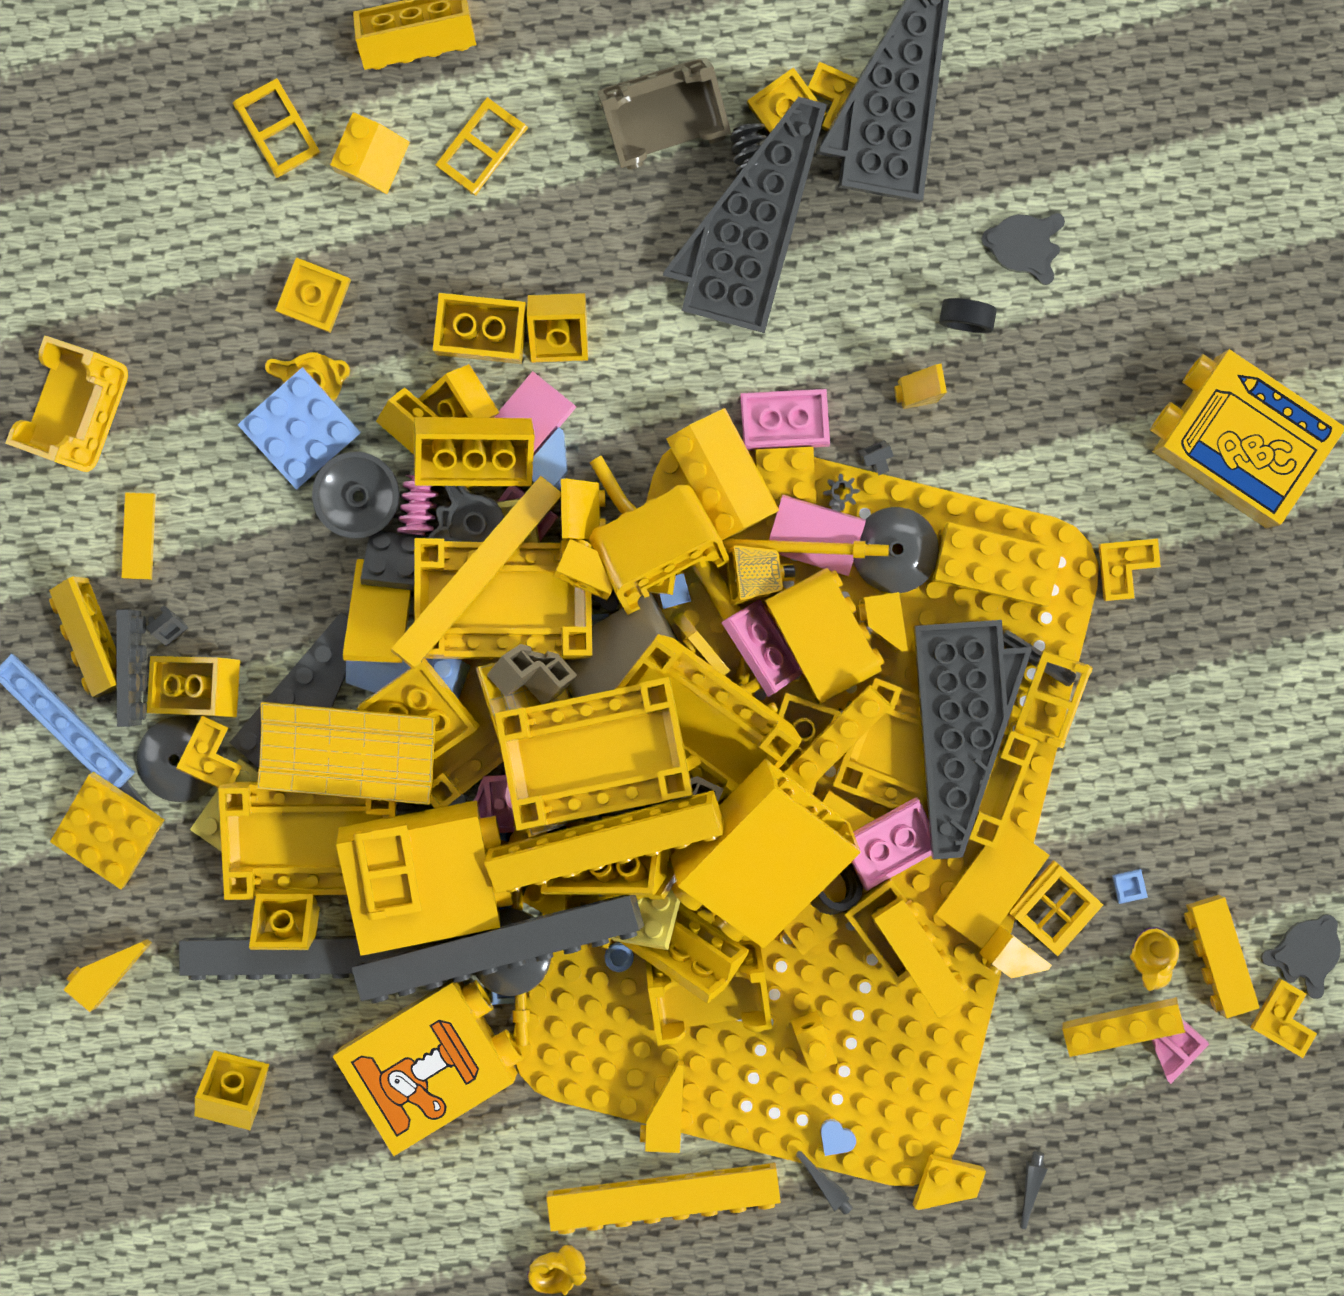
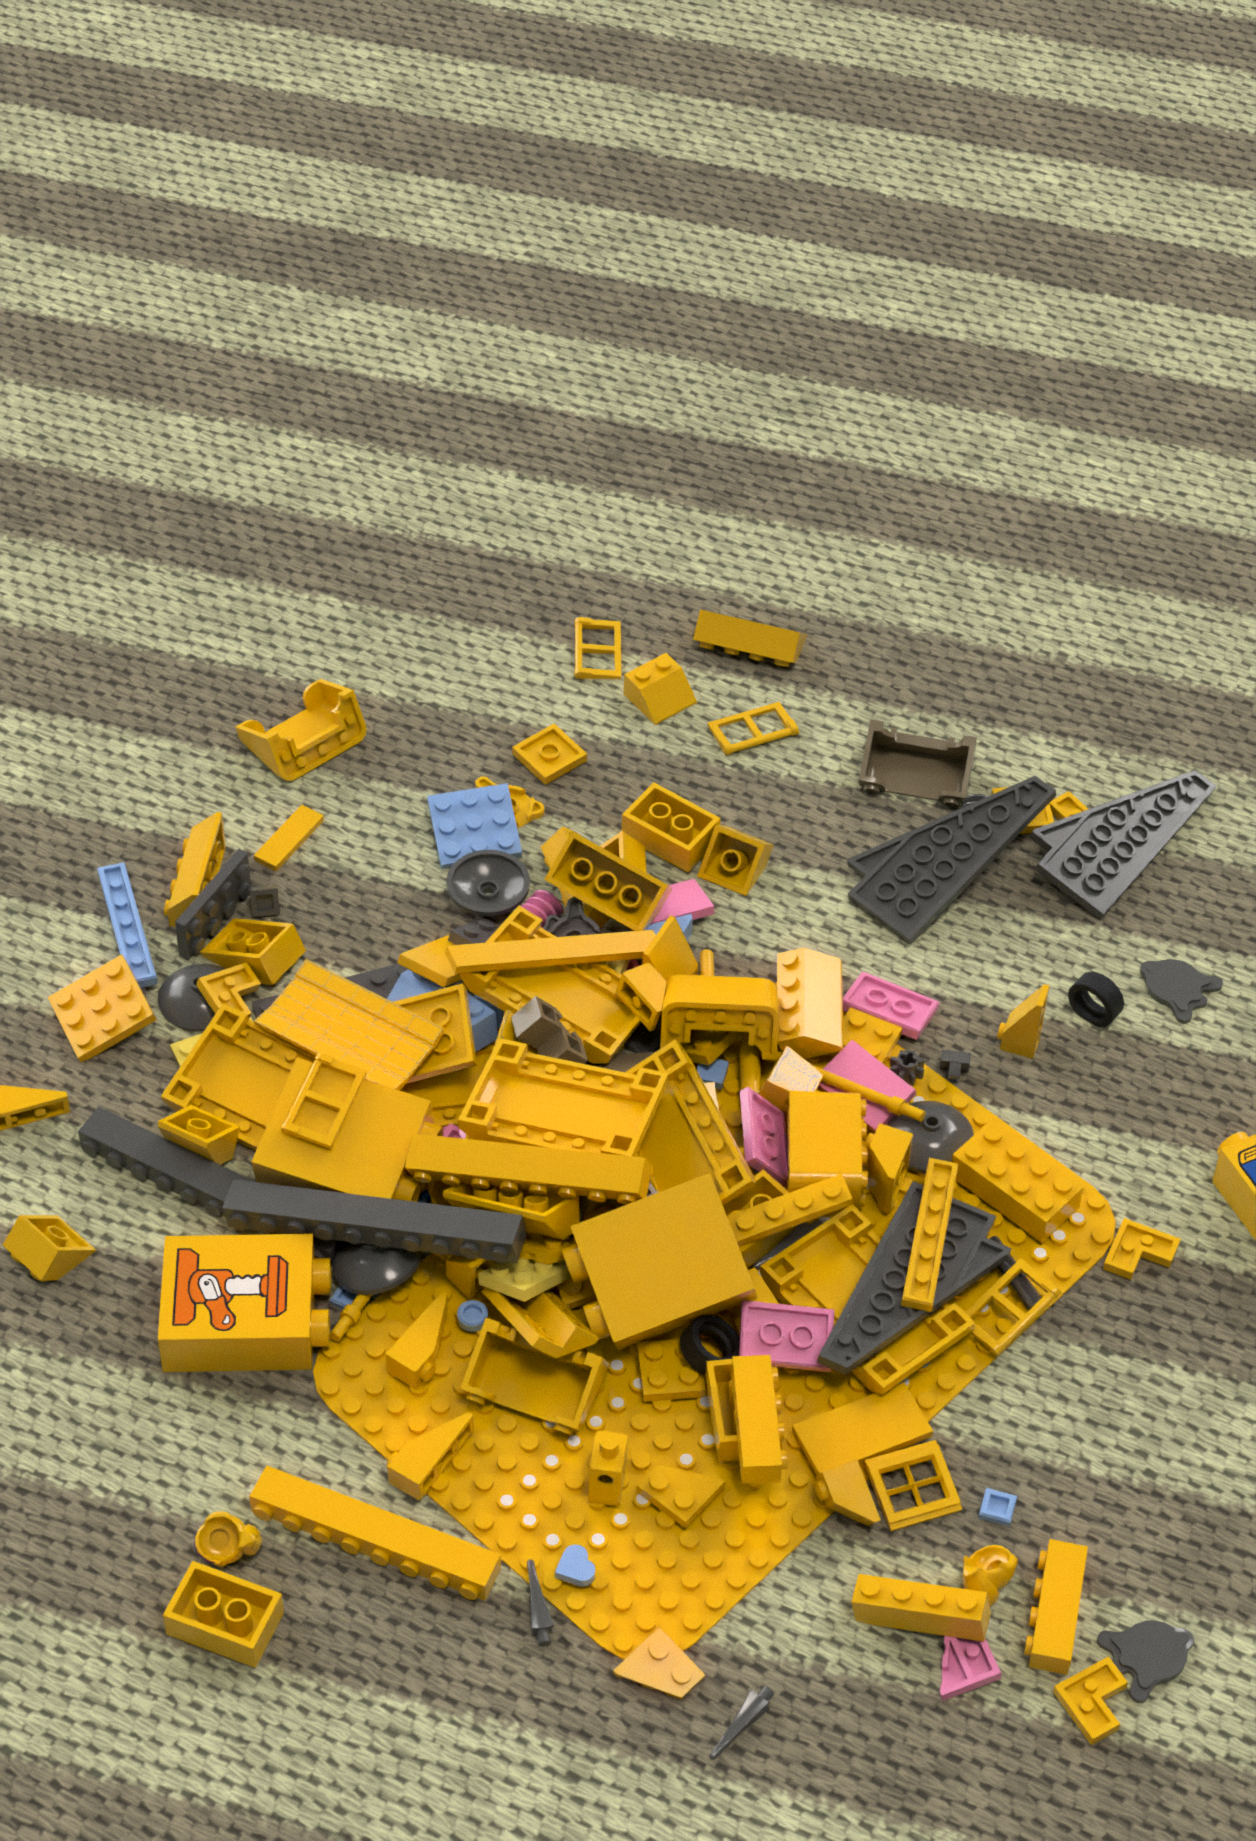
camera: 25 degrees right, 40 degrees down
(599, 1020) = (417, 1350): none -> yellow slope
(878, 1026) = (679, 1492): none -> yellow wing
(959, 678) = (929, 1235): none -> yellow tile

